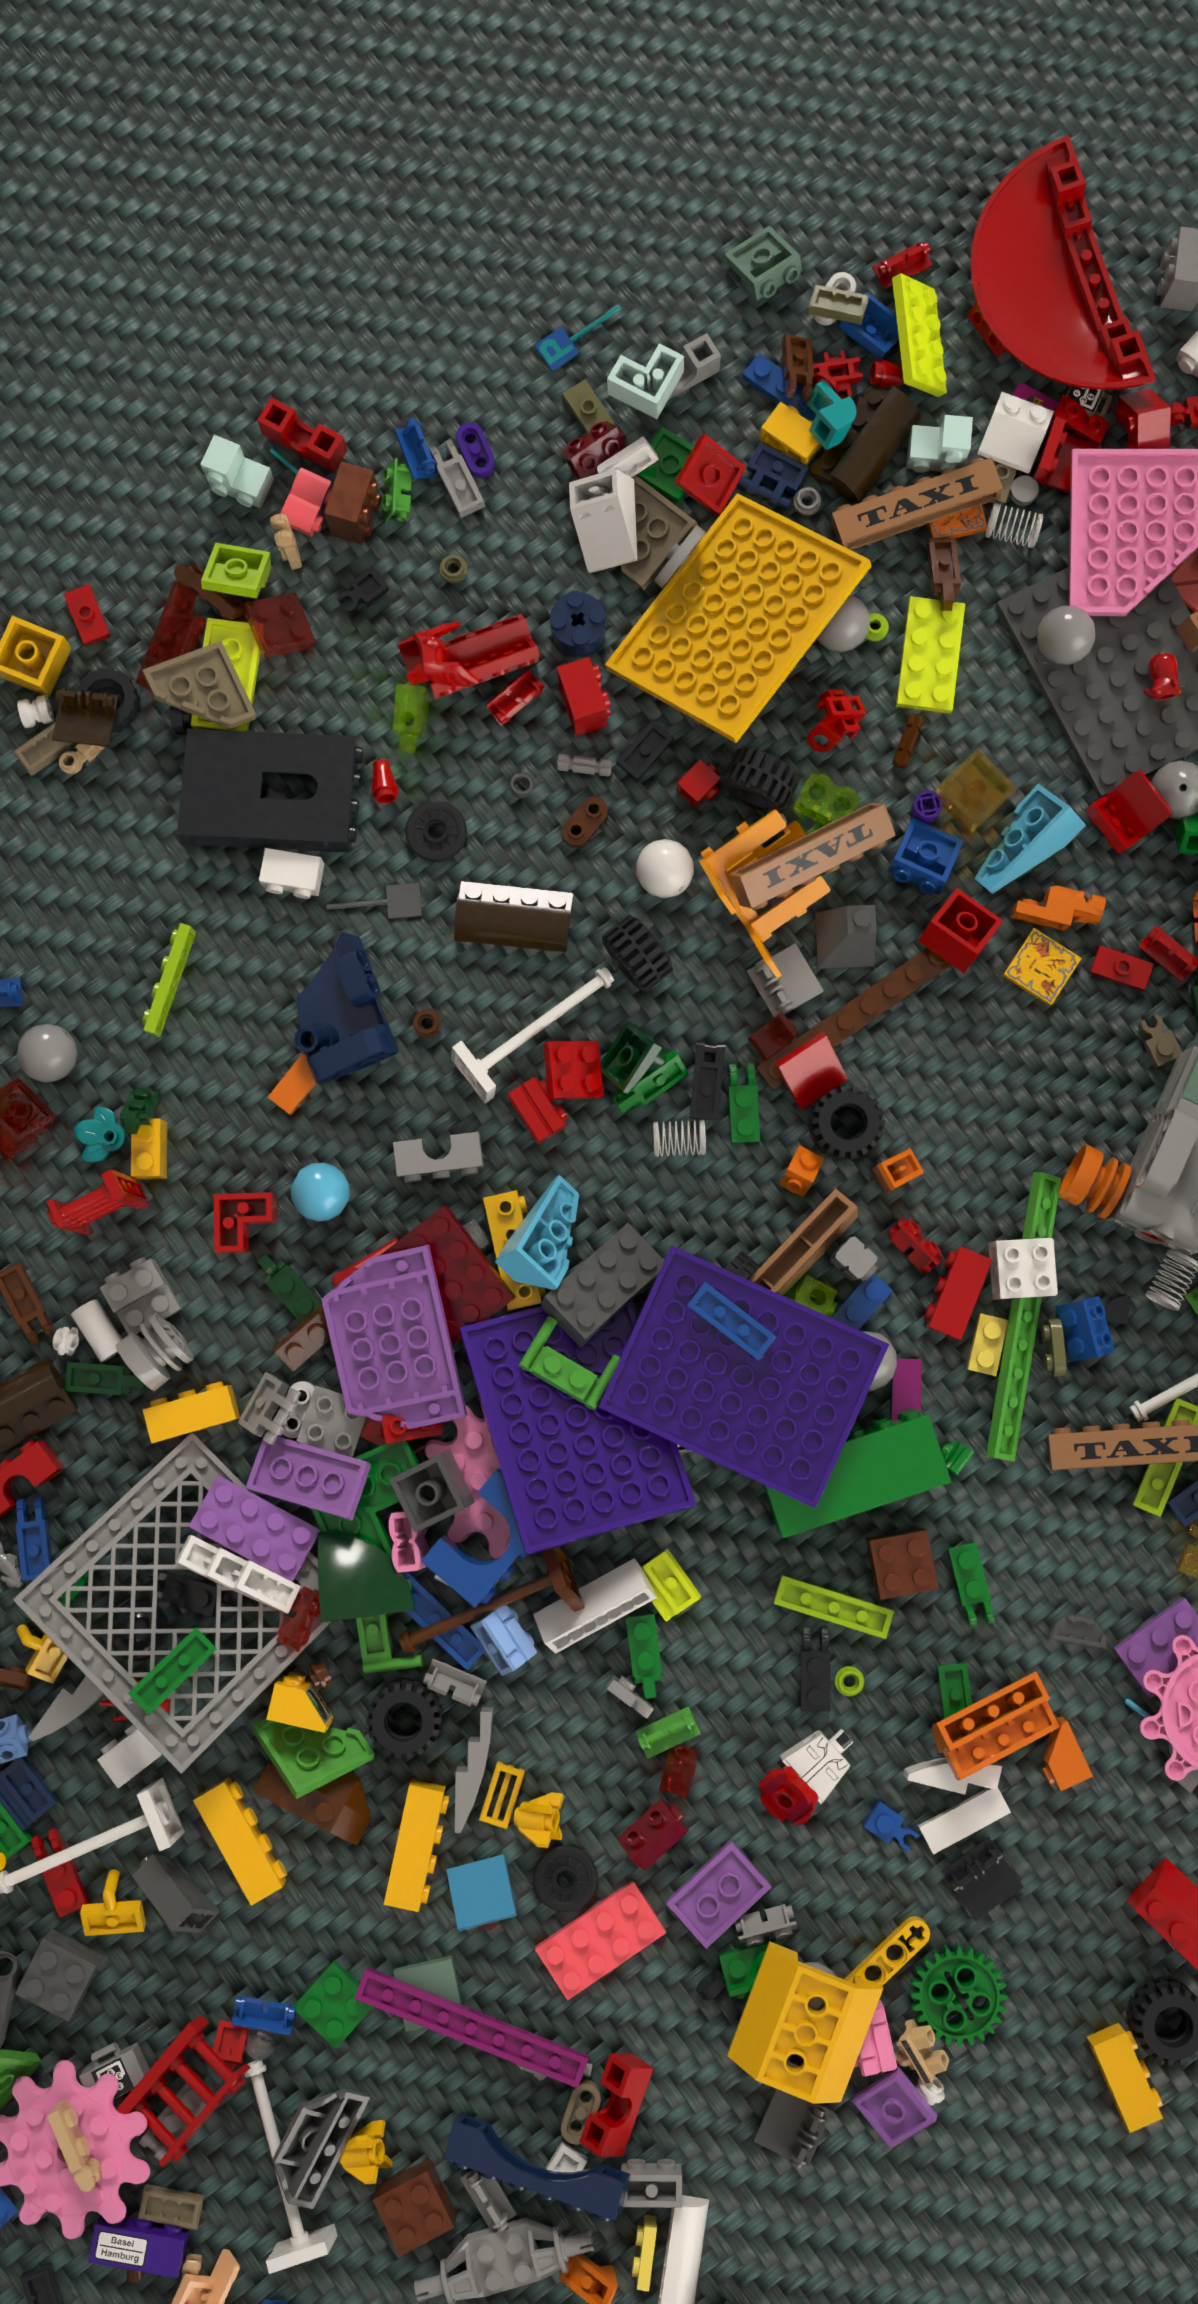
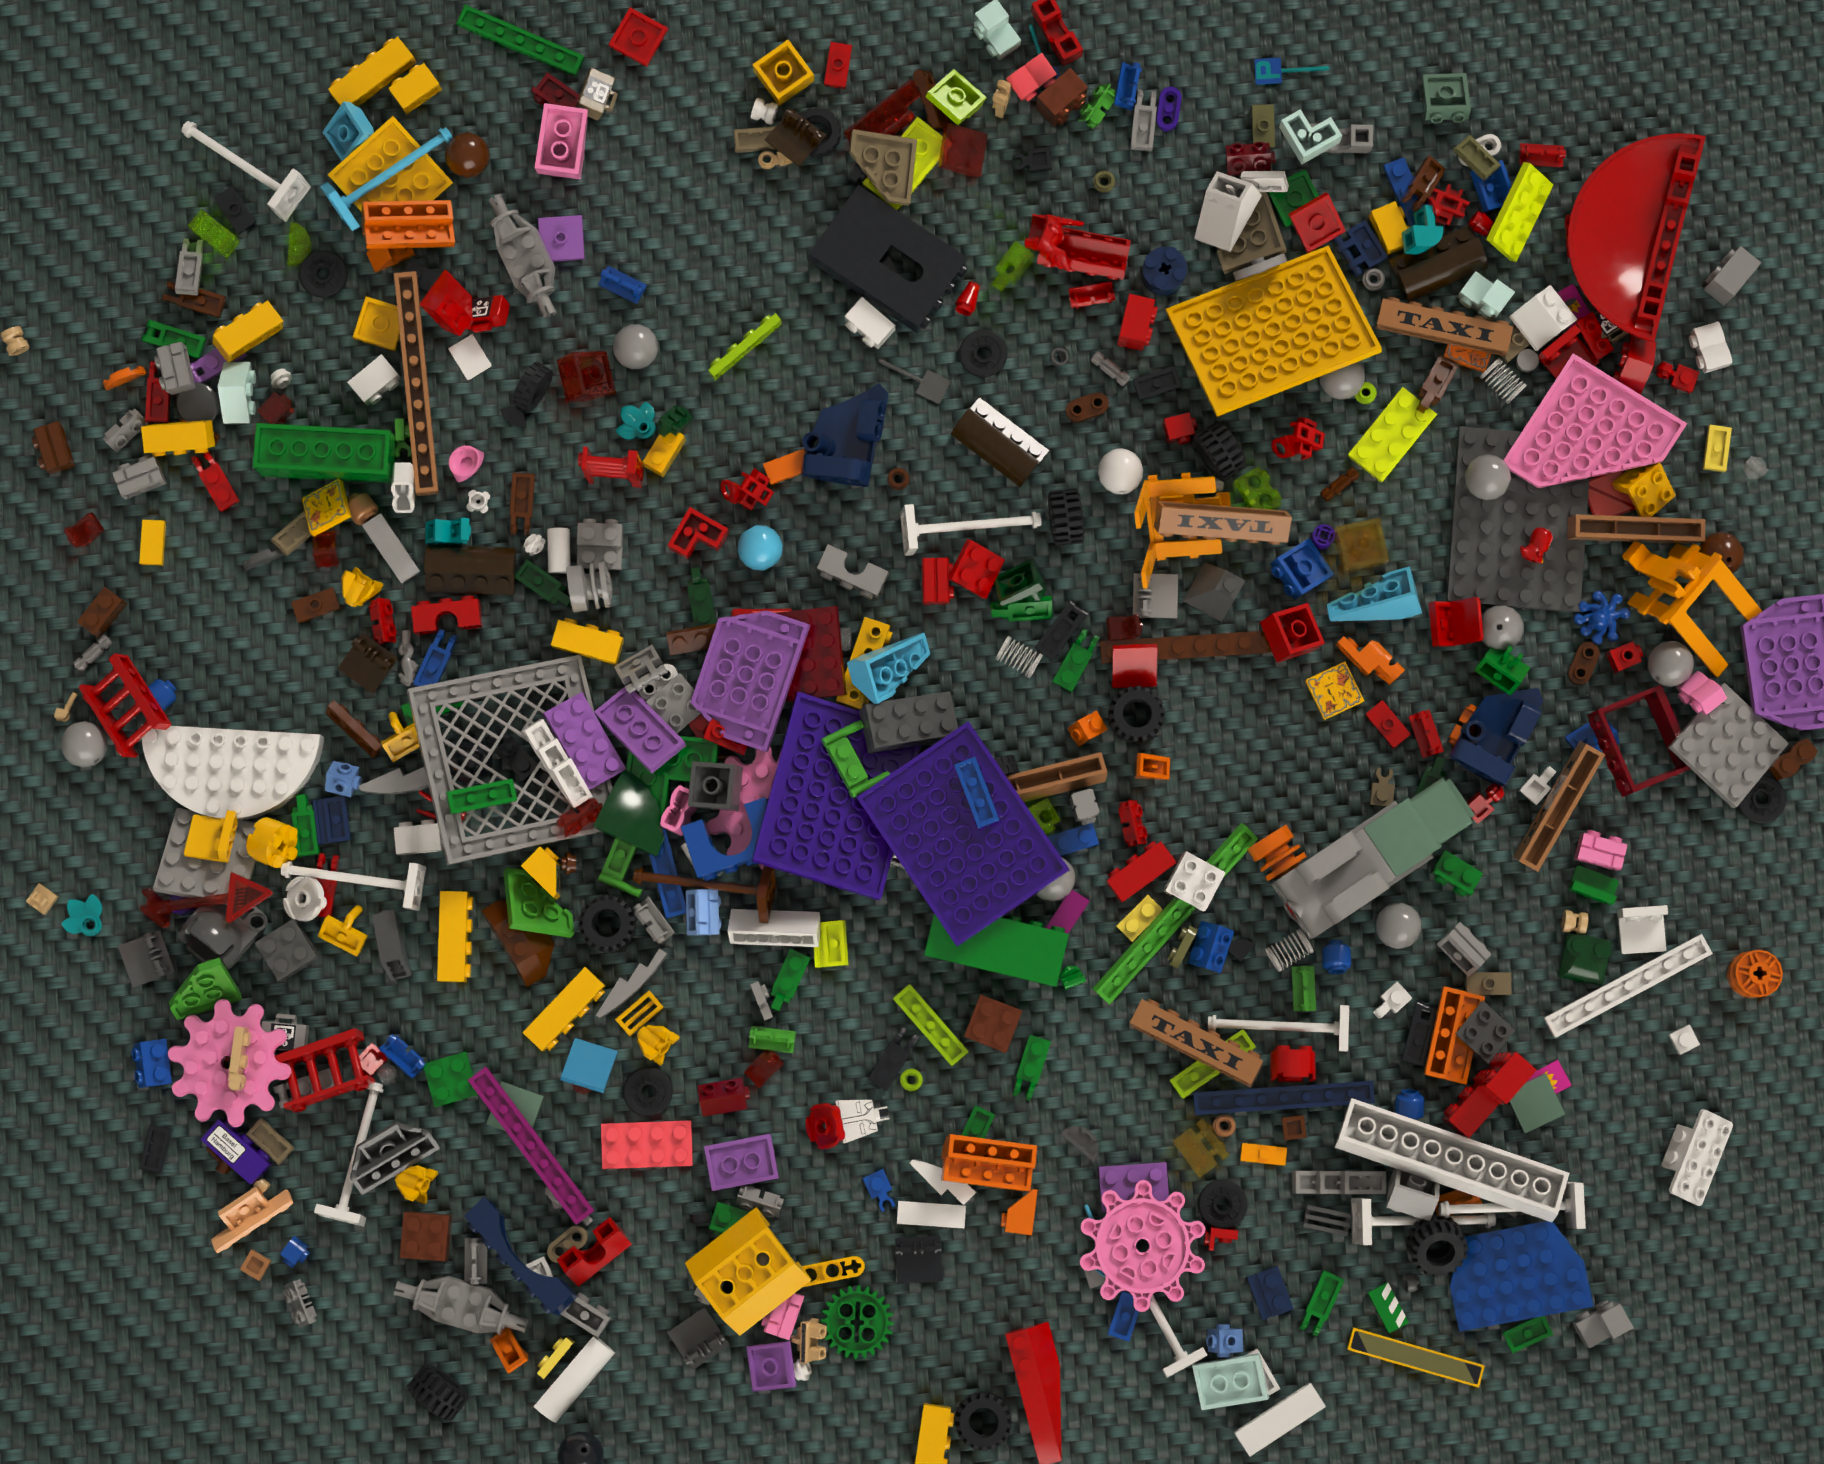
camera: 30 degrees right, 0 degrees up
(55, 1899) = (314, 898): none -> white plate
(263, 1144) = (740, 493): none -> red piece

